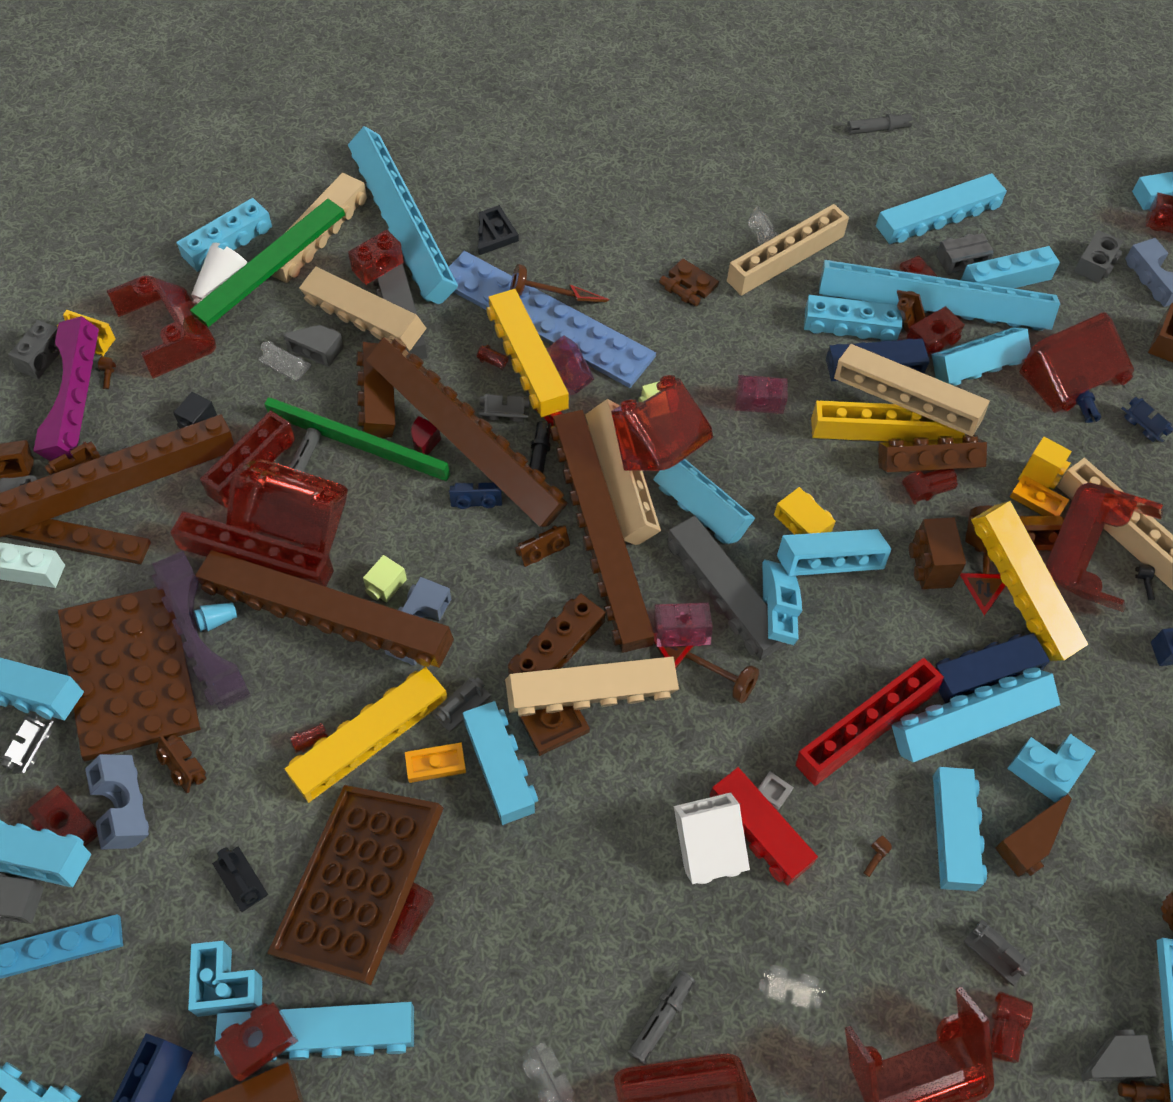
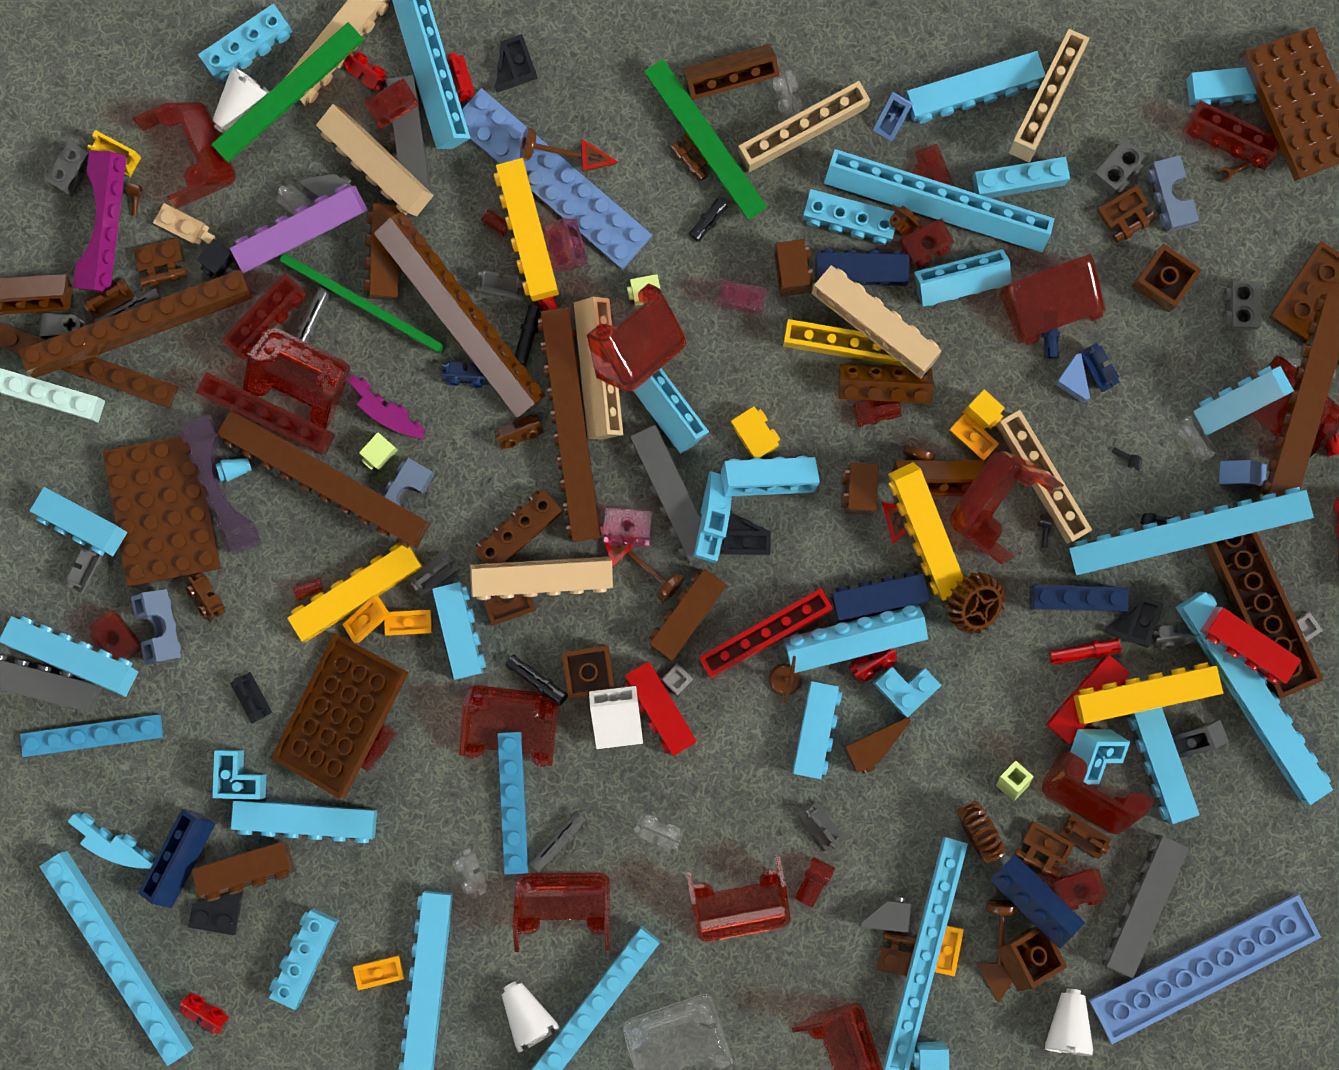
camera: 10 degrees right, 25 degrees up
(132, 420) = (157, 256): none -> reddish brown plate
(157, 390) = (183, 225): none -> tan hinge
(276, 1039) = (274, 822): clear red brick -> none
(283, 372) = (298, 229): none -> medium lavender brick
(340, 242) = (359, 64): none -> red hinge
(383, 761) = (366, 619): none -> light orange plate
(394, 543) = (391, 417): none -> magenta slope
(424, 435) = (421, 310): dark red brick -> none
(442, 242) = (460, 77): none -> red hinge
(578, 869) = (504, 710): none -> clear red windscreen
(594, 975) = (513, 803): none -> dark azure plate
(613, 812) = (544, 685): none -> black pin
(662, 785) = (588, 671): none -> reddish brown brick
(696, 268) = (705, 139): none -> green tile
(707, 214) = (731, 72): none -> reddish brown brick
(710, 336) = (708, 220): none -> black pin
(772, 711) = (688, 614): none -> reddish brown brick
(808, 359) = (792, 267): none -> reddish brown brick
(822, 625) = (746, 538): none -> black wing
(871, 234) = (892, 116): none -> medium blue slope
(882, 847) = (753, 736): reddish brown hand -> none
(903, 775) = (784, 680): none -> reddish brown piece
(960, 252) = (982, 147): flat silver brick -> none
(999, 750) = (866, 669): none -> red hinge
(1016, 203) = (1049, 95): none -> tan brick
(1102, 656) = (975, 603): none -> reddish brown gear
(1115, 288) = (1123, 207): none -> reddish brown plate
(1126, 435) = (1074, 379): none -> medium blue slope

